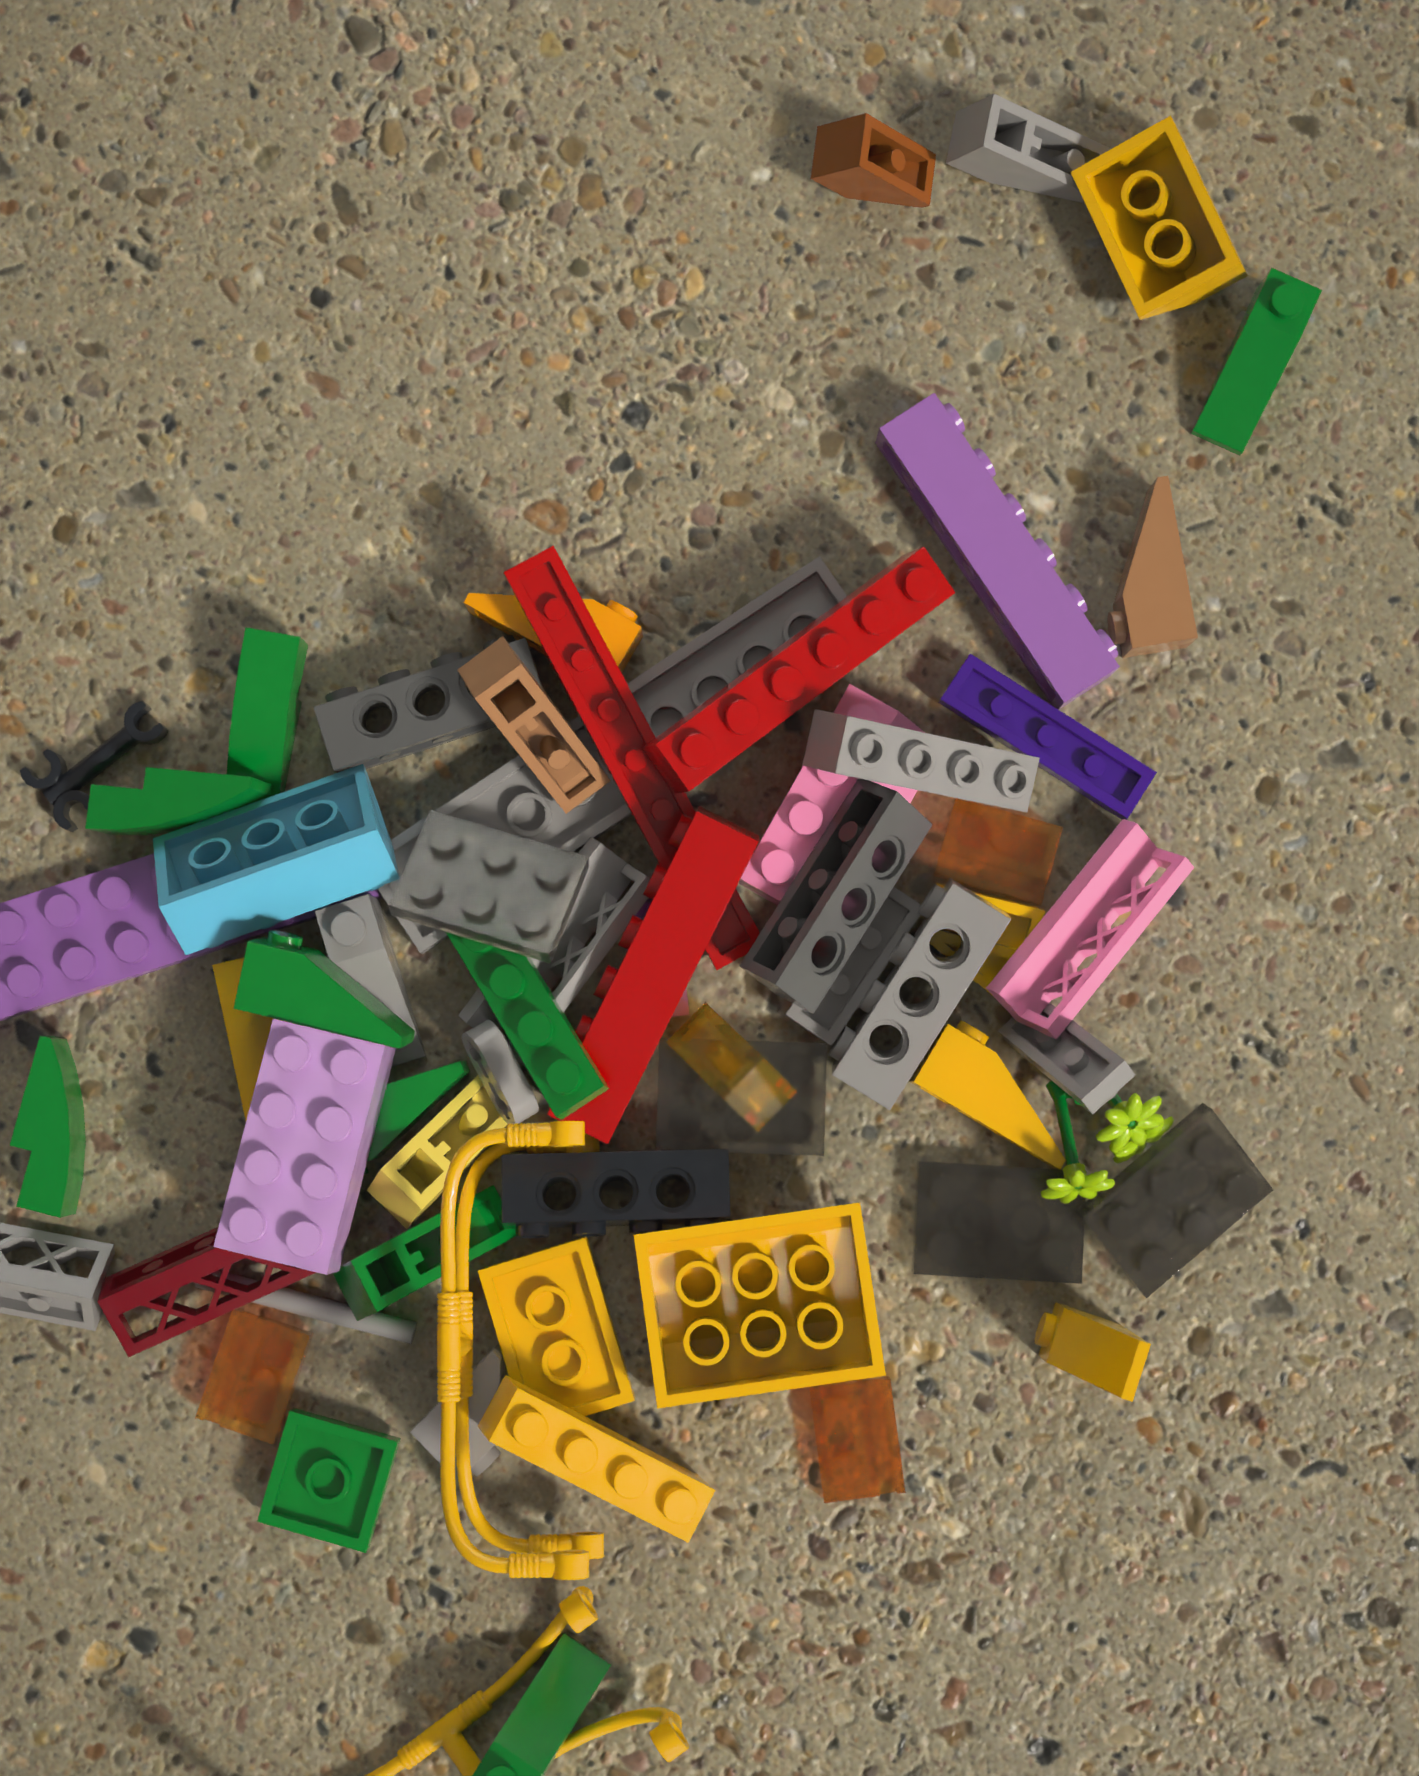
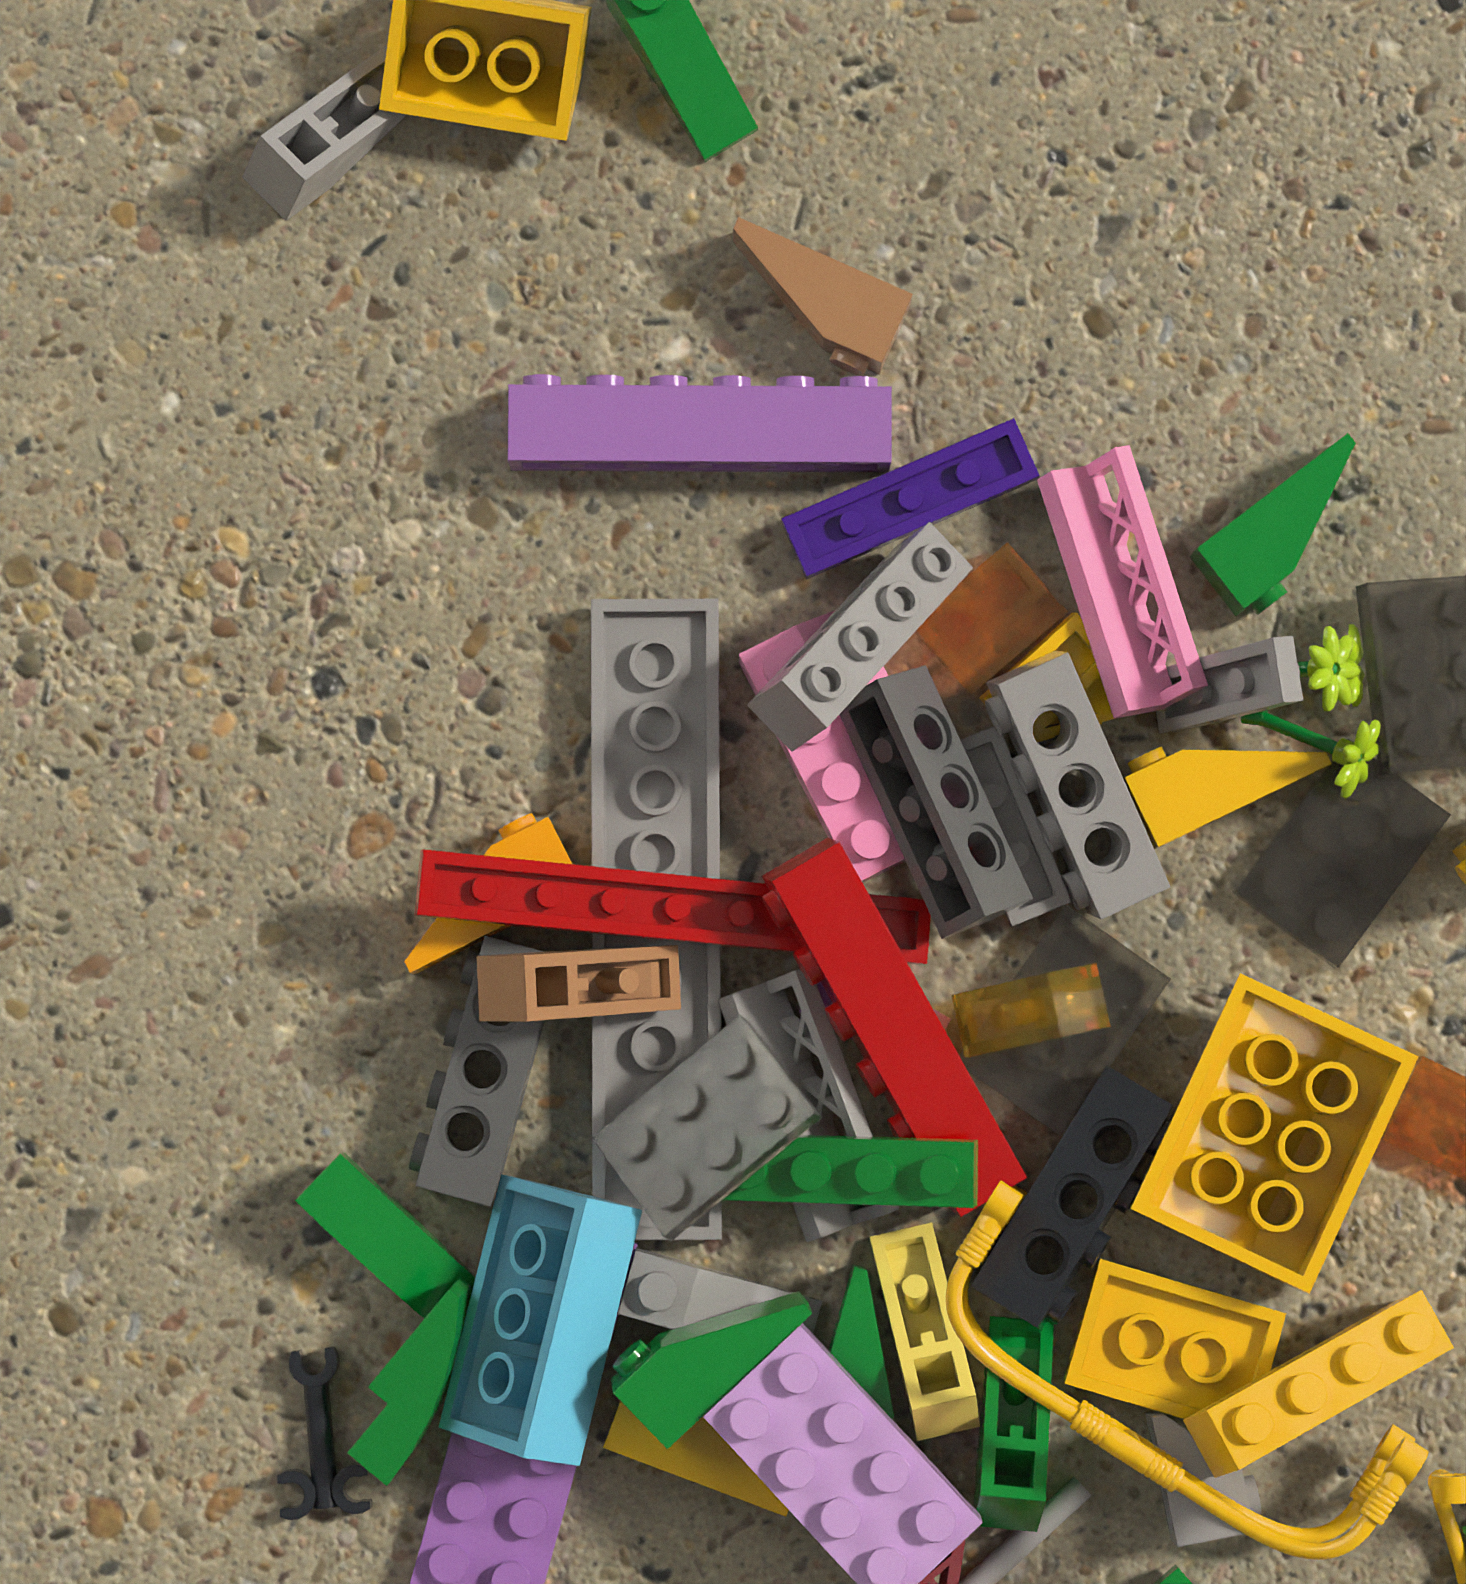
camera: 60 degrees left, 0 degrees up
(500, 1072) = (891, 1236): light grey beam -> none
(798, 670) = (696, 695): red brick -> none
(872, 162) = (238, 290): dark orange slope -> none
(1189, 1014) = (1267, 540): none -> green slope

